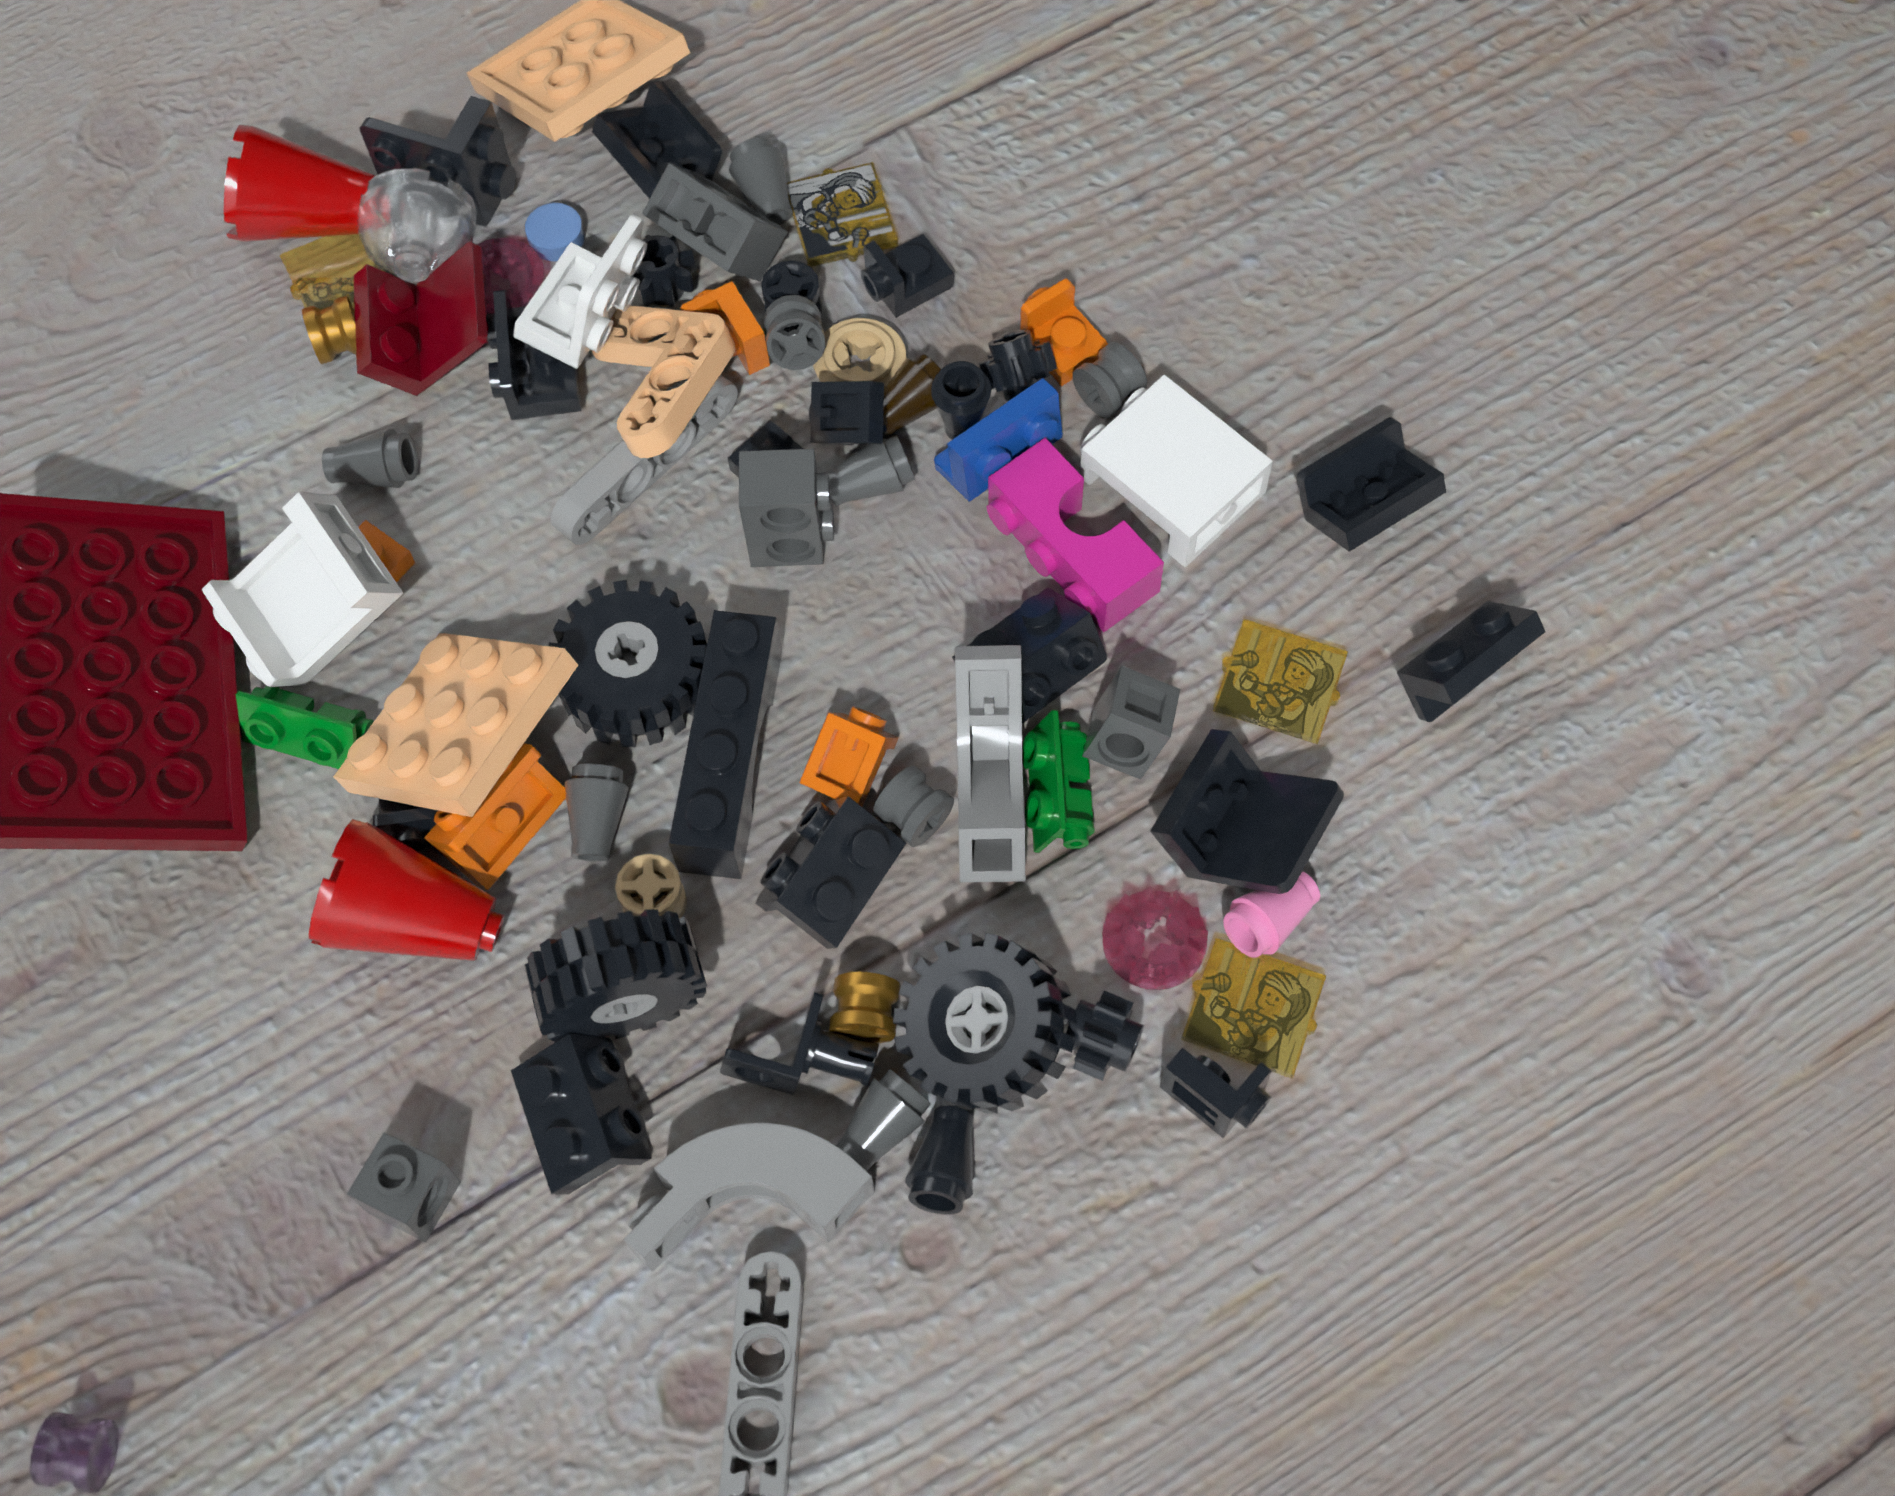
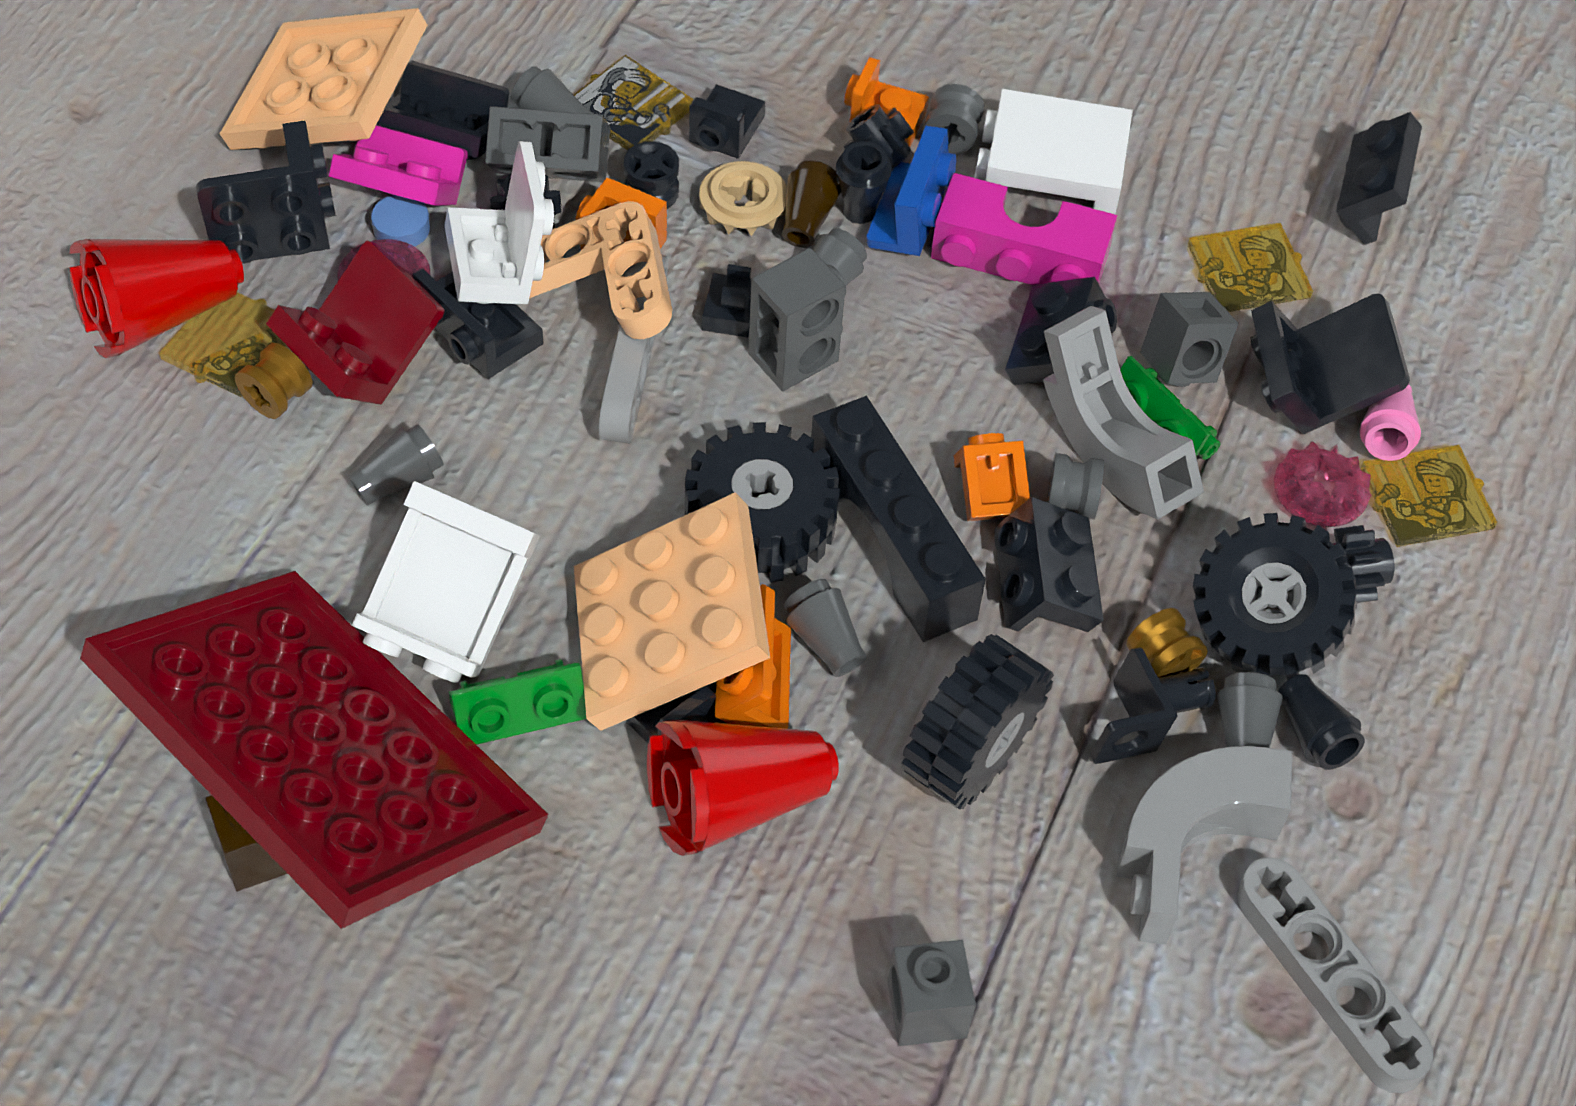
camera: 40 degrees left, 10 degrees down
(413, 222) = (291, 256): clear cylinder -> none
(580, 1111) = (1012, 856): black bracket -> none
(581, 183) = (404, 166): none -> dark pink bracket
(645, 879) = (925, 645): tan wheel -> none
(798, 347) = (697, 203): dark grey wheel -> none
(846, 412) = (785, 227): black bracket -> none
(1205, 1091) = (1462, 563): black bracket -> none
(1367, 486) = (1203, 104): black bracket -> none

